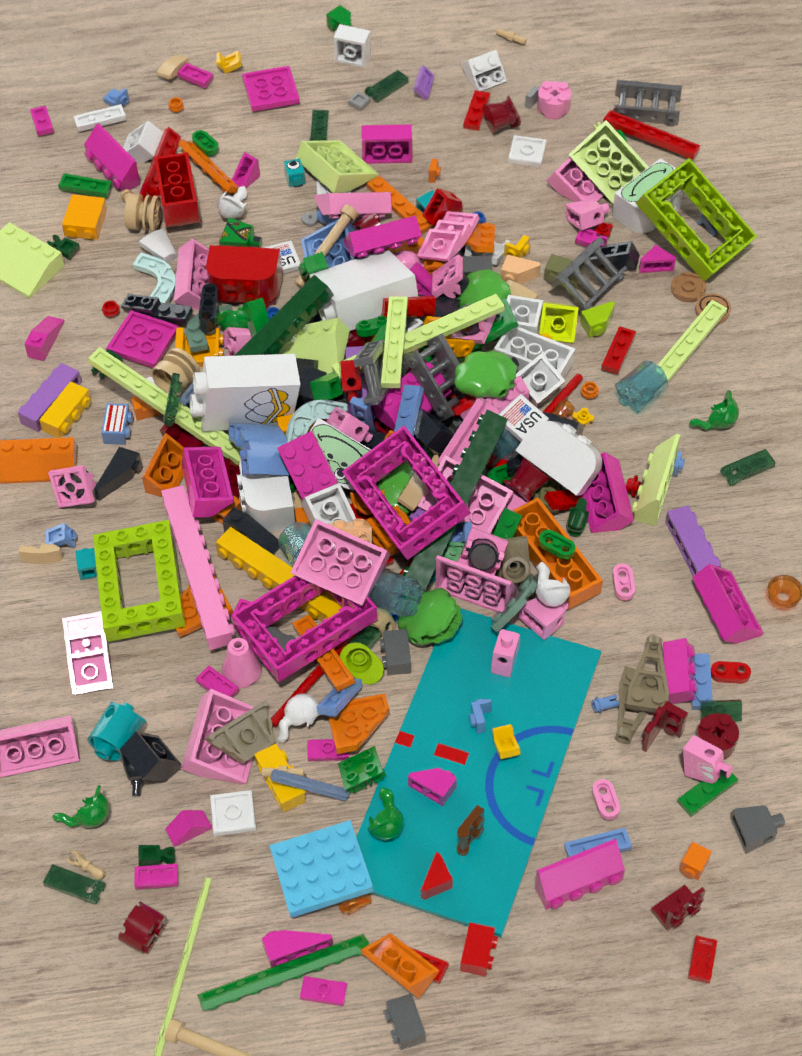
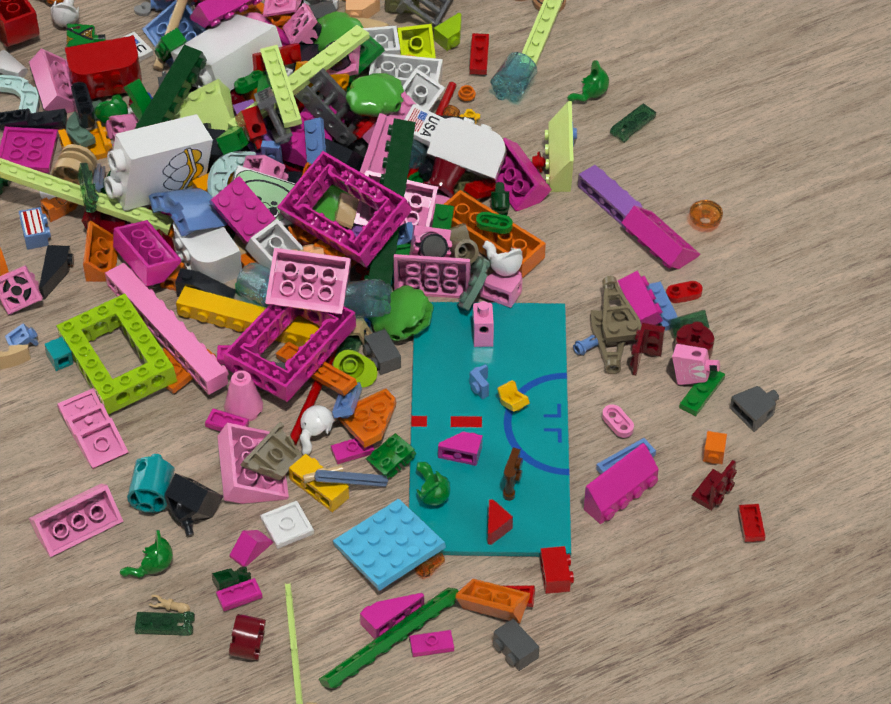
camera: 20 degrees left, 5 degrees down
(623, 583) = (562, 243): bright pink plate -> none

